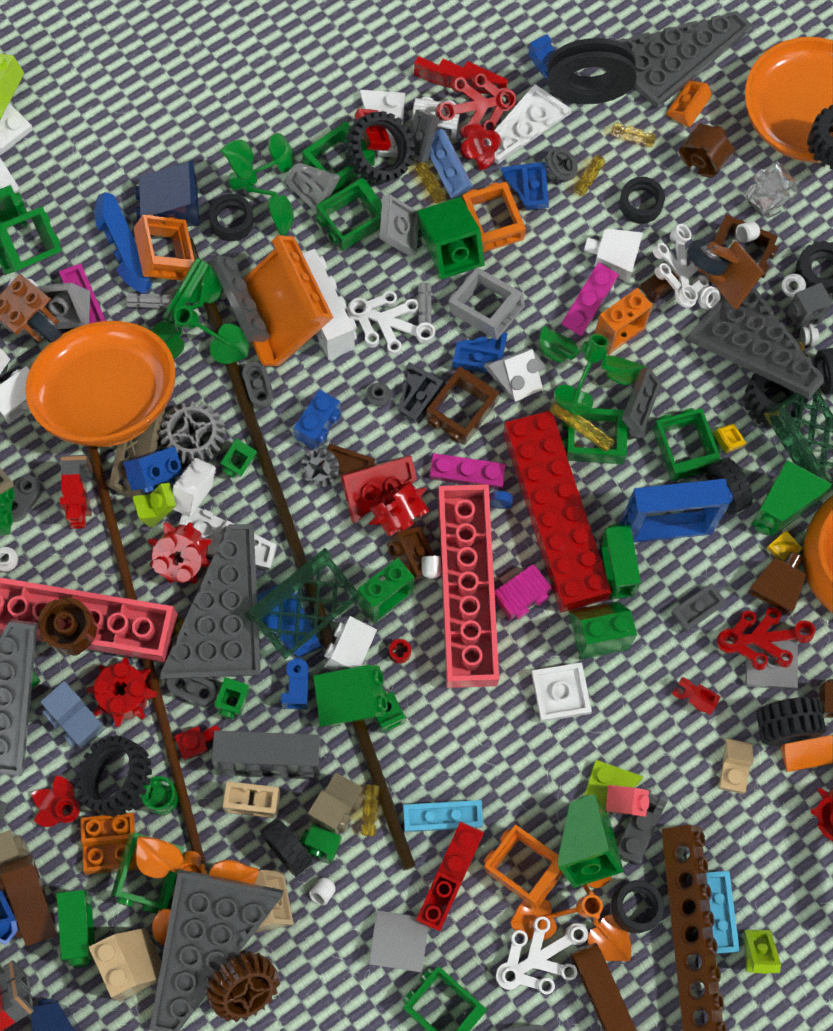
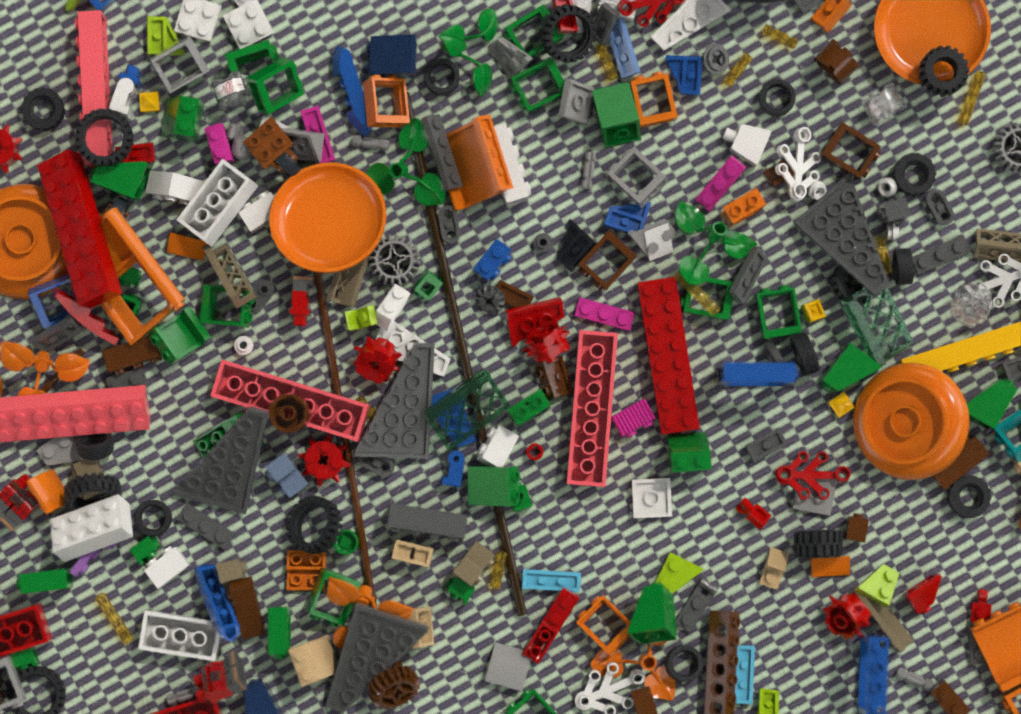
camera: 10 degrees right, 15 degrees up
(53, 801) = (267, 535): red plate -> none
(153, 468) = (362, 289): blue brick -> none
(186, 288) = (399, 140): green axle -> none
(193, 741) = (374, 502): red plate -> none
(229, 690) = (404, 467): green brick -> none
(286, 847) = (434, 591): black tyre -> none
(324, 888) = (457, 623): white piece -> none
(387, 320) = (557, 179): white plant -> none
(431, 566) = (566, 390): white piece -> none
(477, 147) = (651, 36): red plate -> none
(500, 499) = (626, 341): blue tile -> none
(620, 561) = (710, 404): green window -> none
(627, 800) = (687, 588): coral brick -> none
(728, 268) = (833, 170): dark orange plate -> none
(747, 231) = (856, 141): white piece -> none
(780, 584) = (831, 433): reddish brown torso -> none

